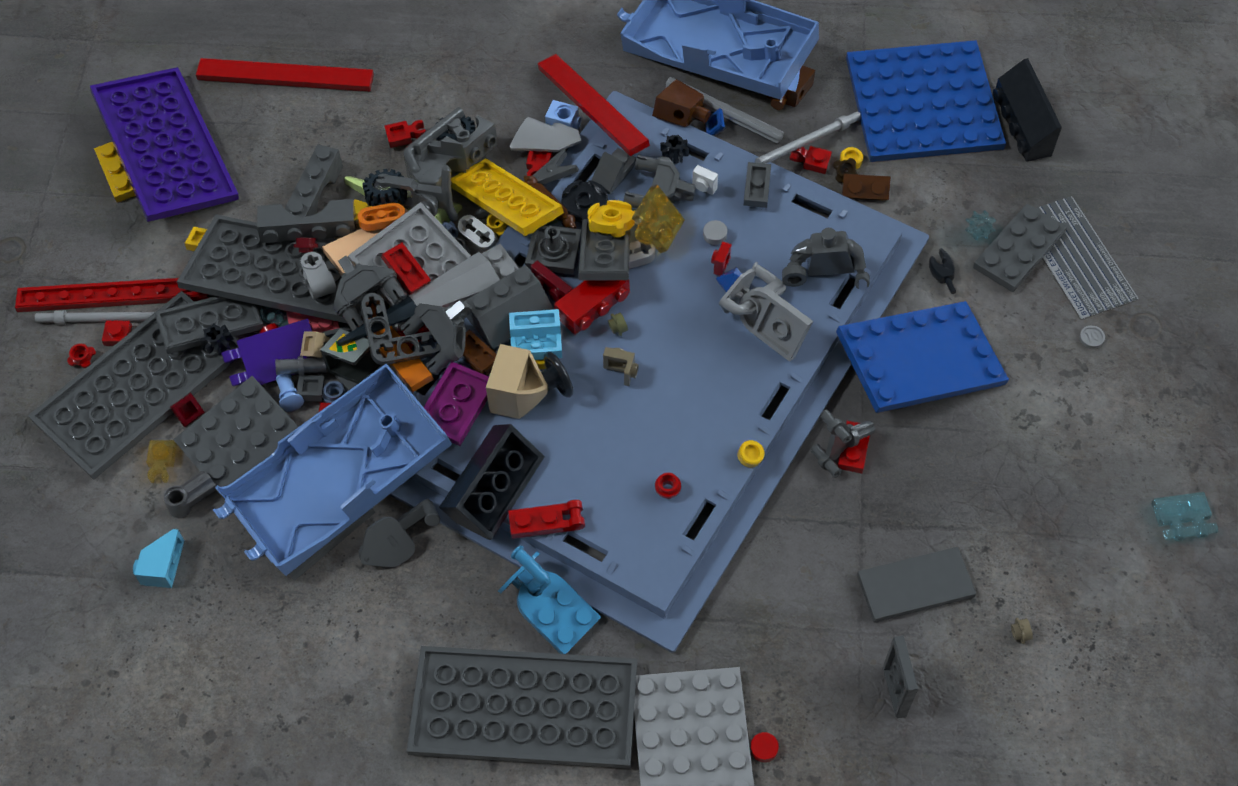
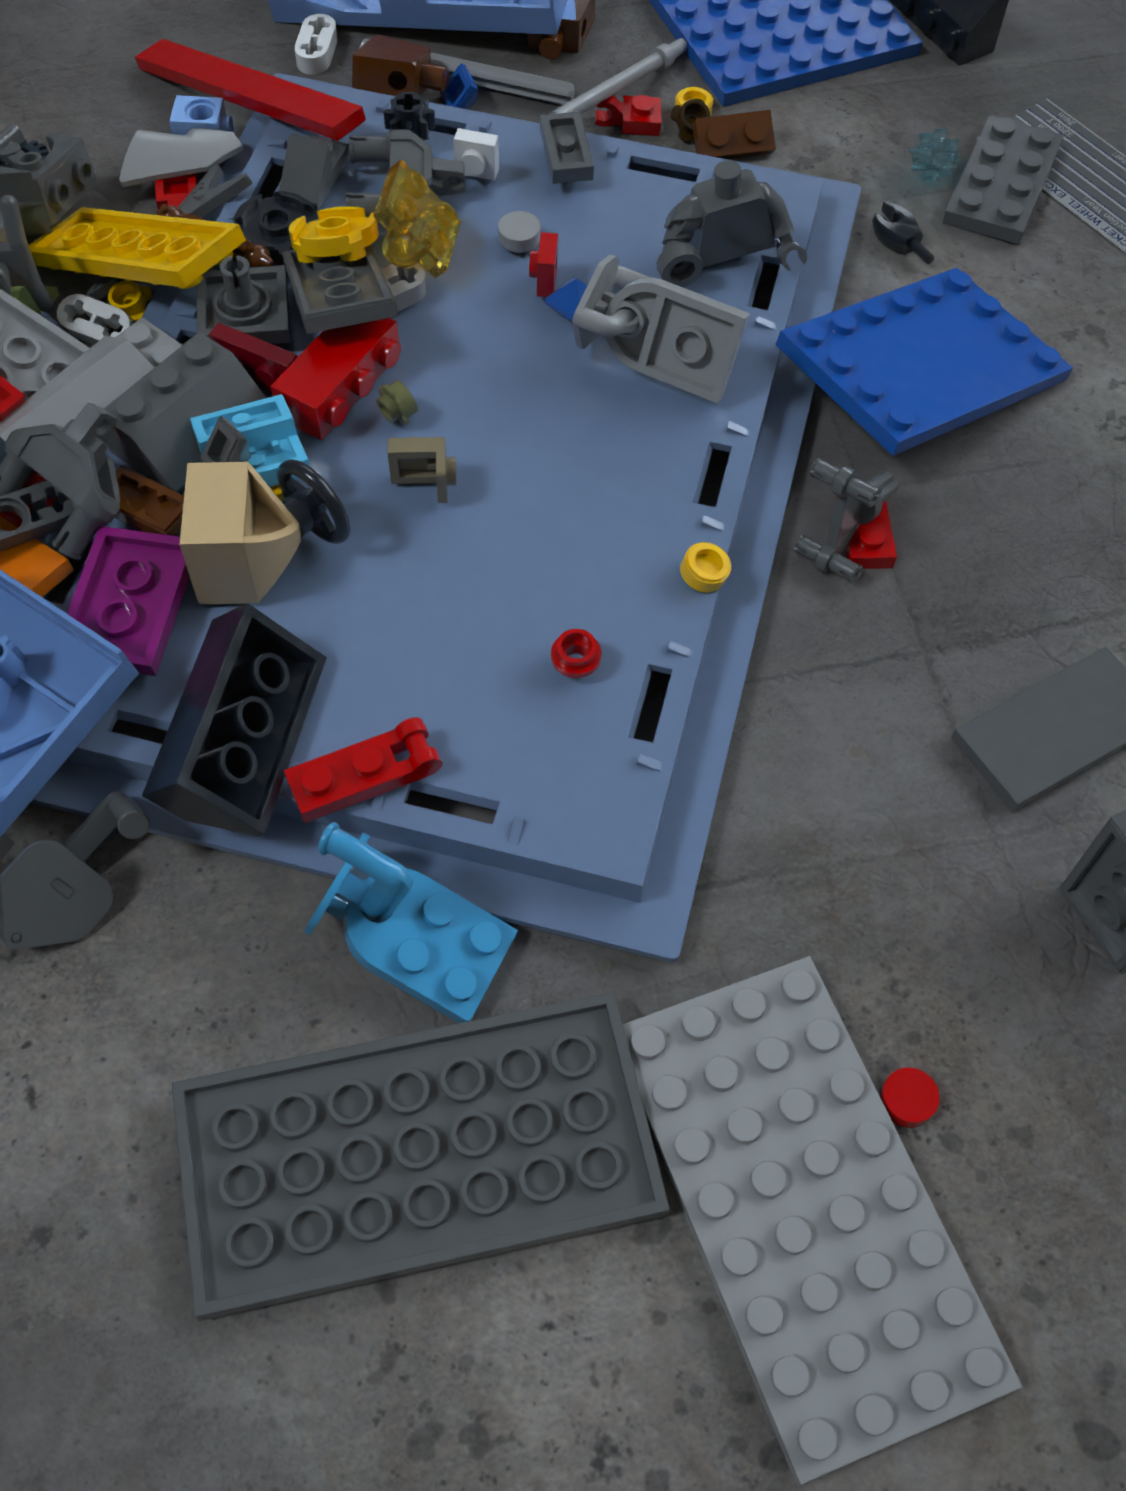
camera: 20 degrees left, 0 degrees up
(521, 336) = (226, 444): none -> dark grey slope
(639, 71) = (316, 44): none -> white beam

